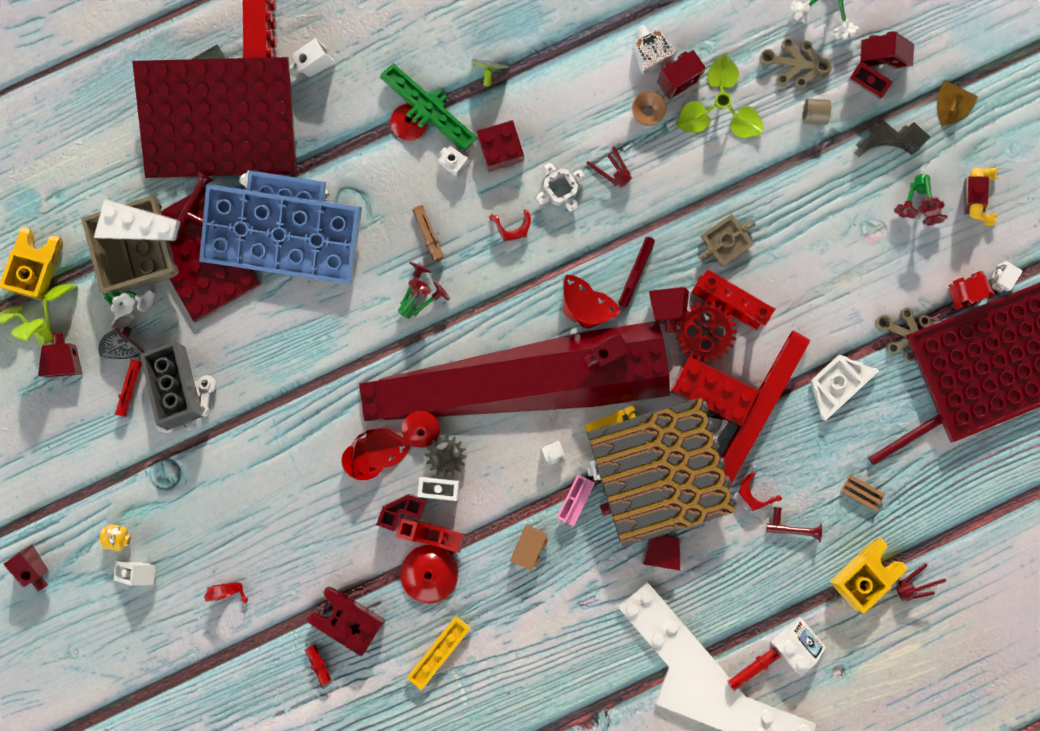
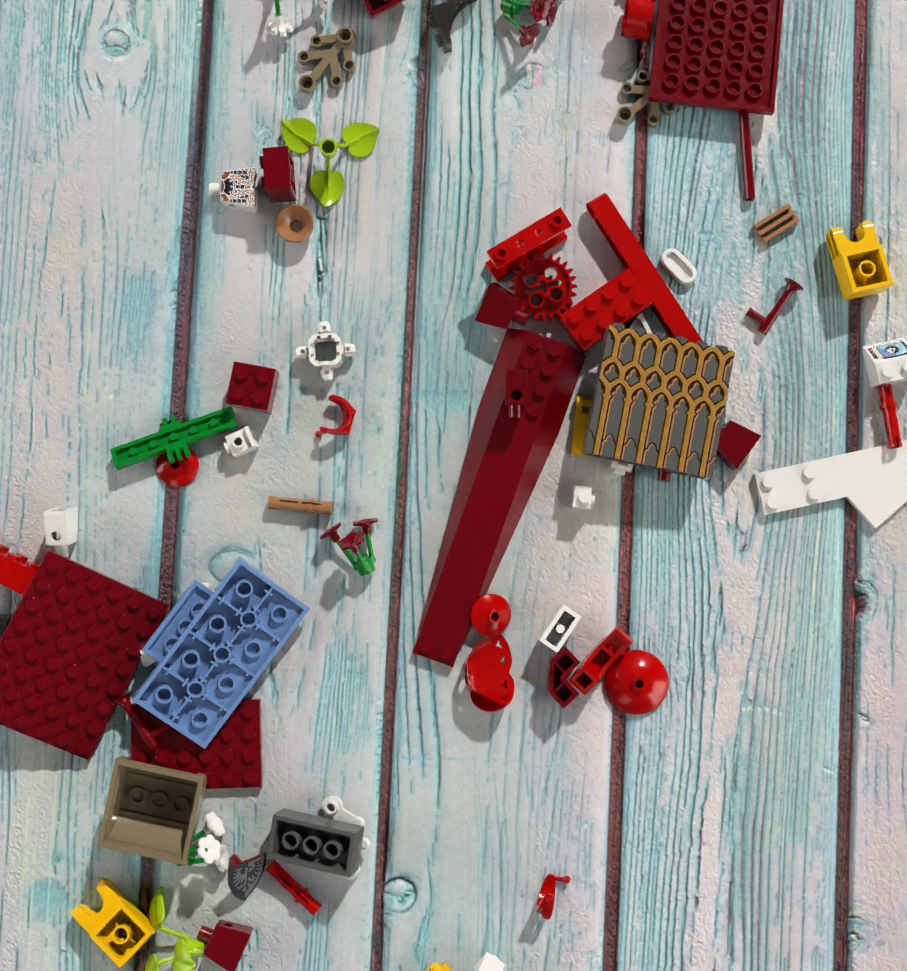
camera: 60 degrees left, 0 degrees up
(126, 222) = (130, 798): white wing -> none
(318, 664) = (668, 839): red pin -> none
(345, 615) = (635, 785): dark red brick -> none
(438, 652) = (718, 713): yellow plate -> none
(454, 459) = (539, 615): clear smoke gear -> none
(489, 69) = (167, 356): lime shield -> none
(529, 547) = (662, 570): medium nougat brick -> none
(575, 500) = (640, 500): bright pink piece -> none
(584, 305) = (454, 391): red piece -> none
(622, 175) = (347, 286): dark red plant -> none
(636, 272) = (448, 322): dark red axle -> none
(727, 240) = (465, 219): dark tan plate -> none
(744, 492) = (722, 334): red helmet -> none
(783, 432) = (678, 266): none -> white tile
(816, 111) = (386, 65): dark tan piece -> none
(839, 383) = (660, 188): white wing -> none
(909, 592) = (891, 231): dark red plant -> none

